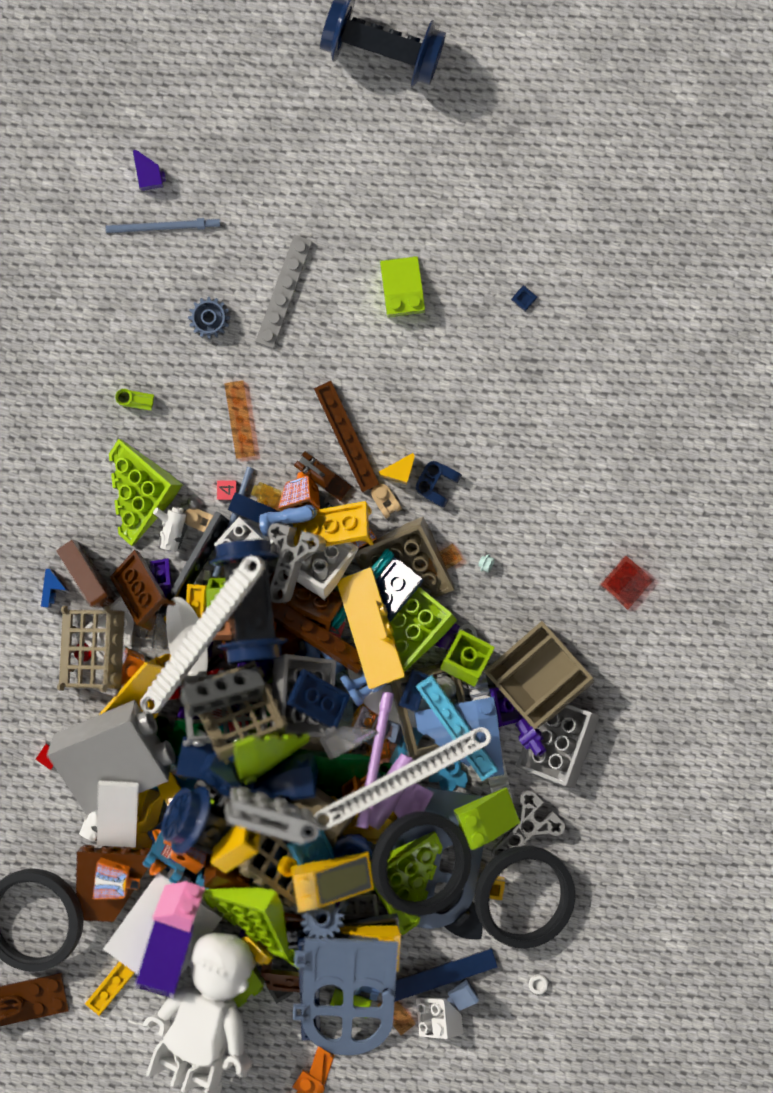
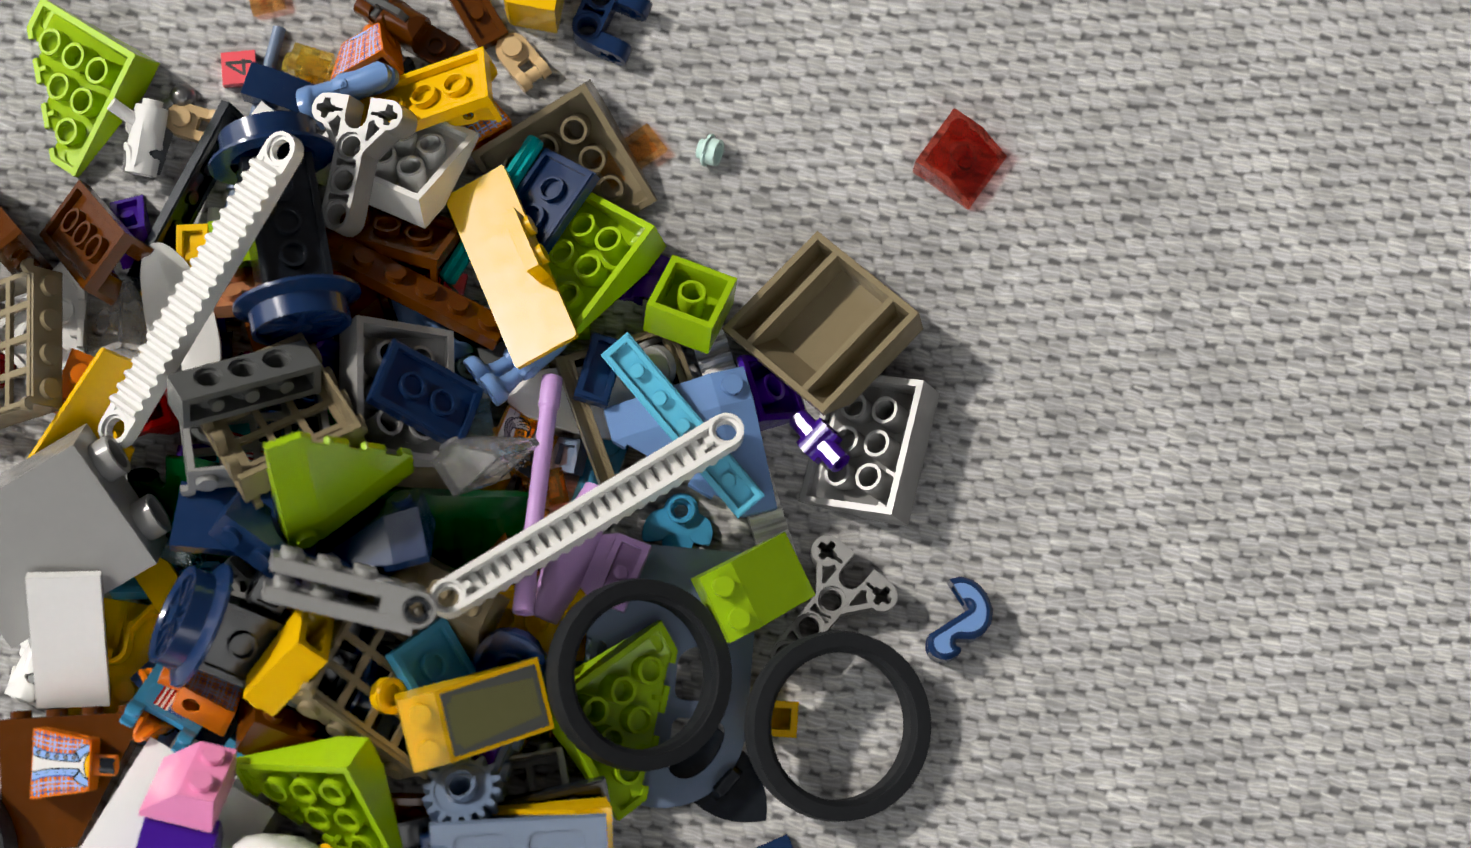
camera: 10 degrees left, 10 degrees down
(598, 847) = (966, 627): none -> dark blue animal

